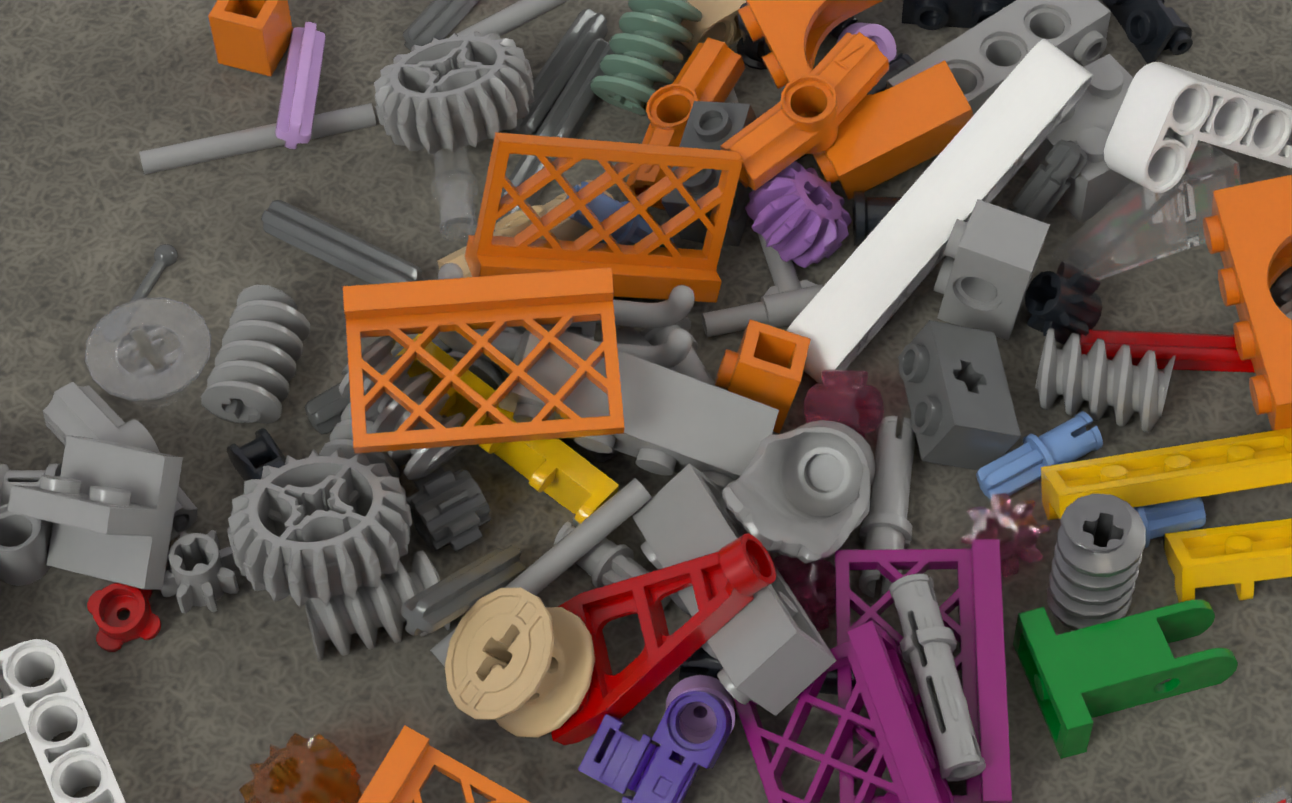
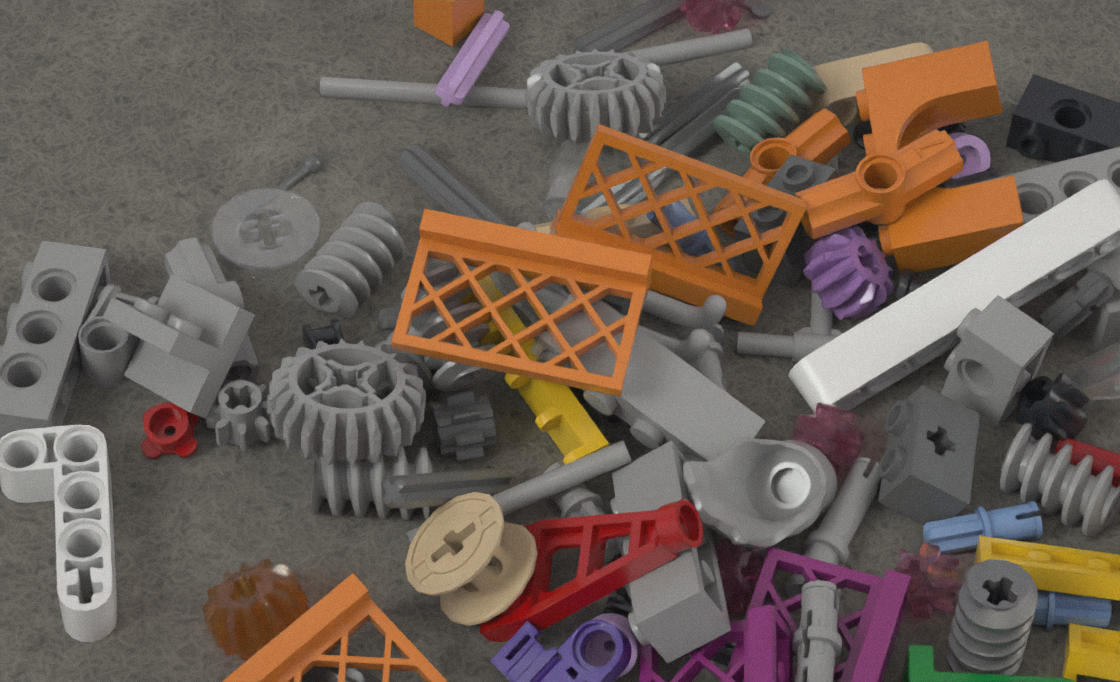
camera: 15 degrees right, 5 degrees down
(765, 367) = (770, 387): orange brick -> none

